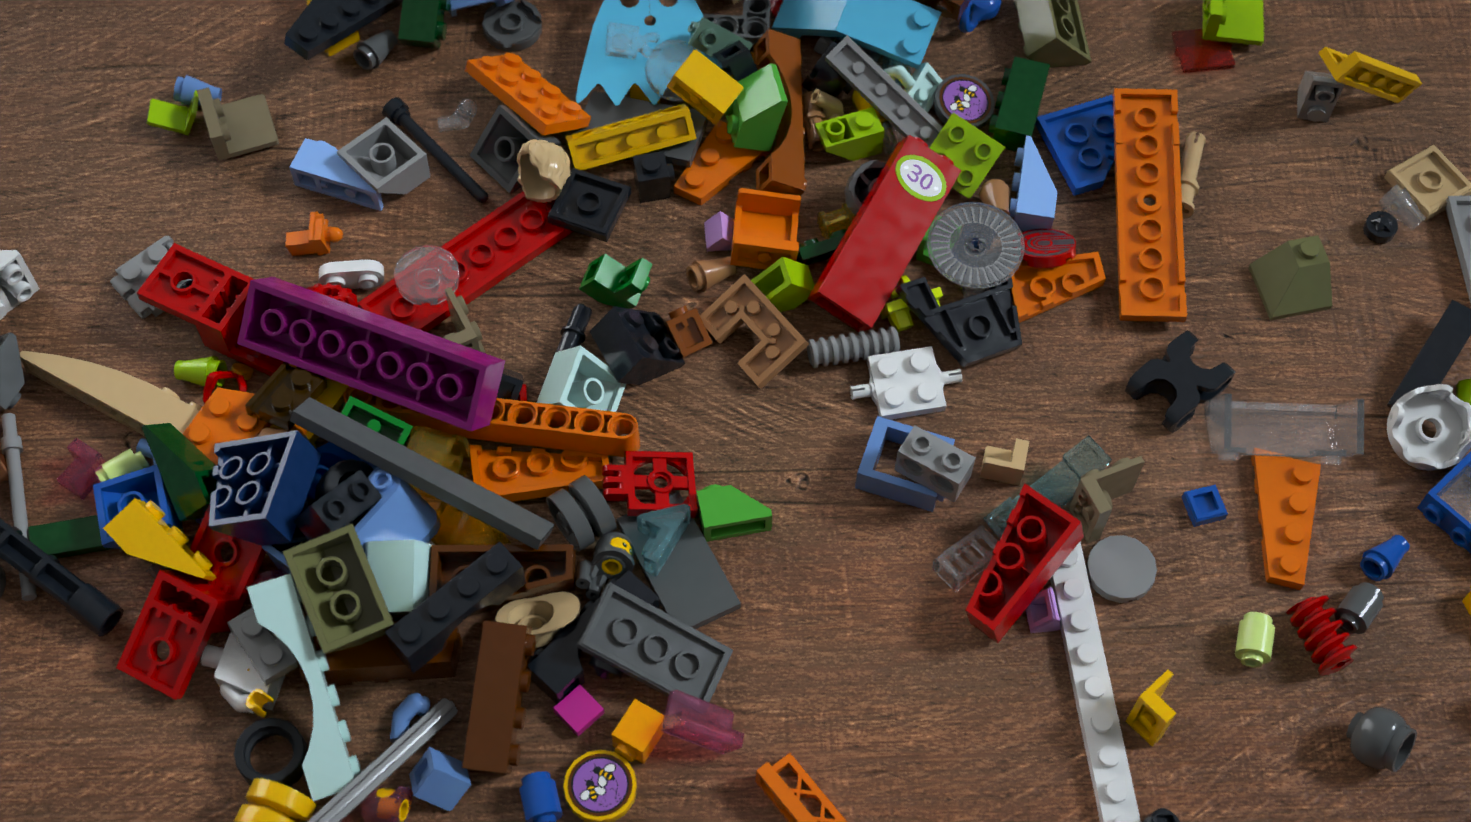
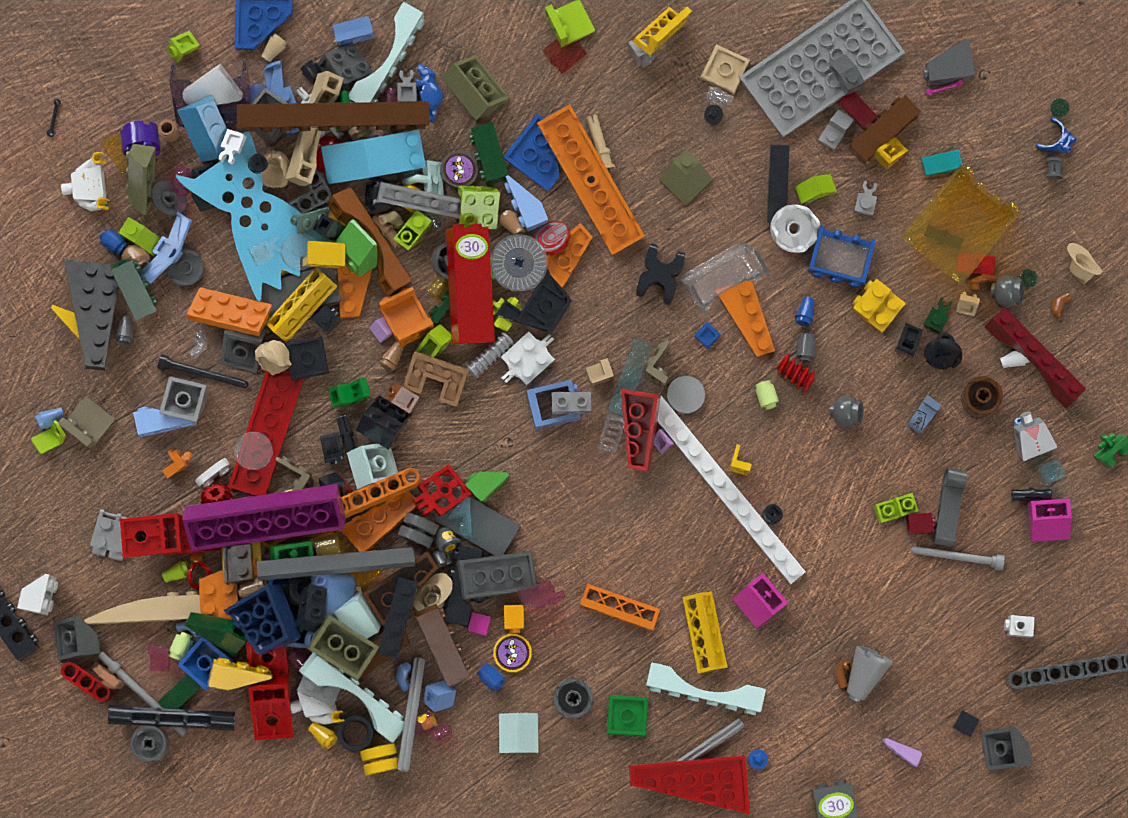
camera: 30 degrees left, 20 degrees up
(221, 726) = (323, 735): none -> yellow cone
(540, 337) = (332, 448): none -> black bracket

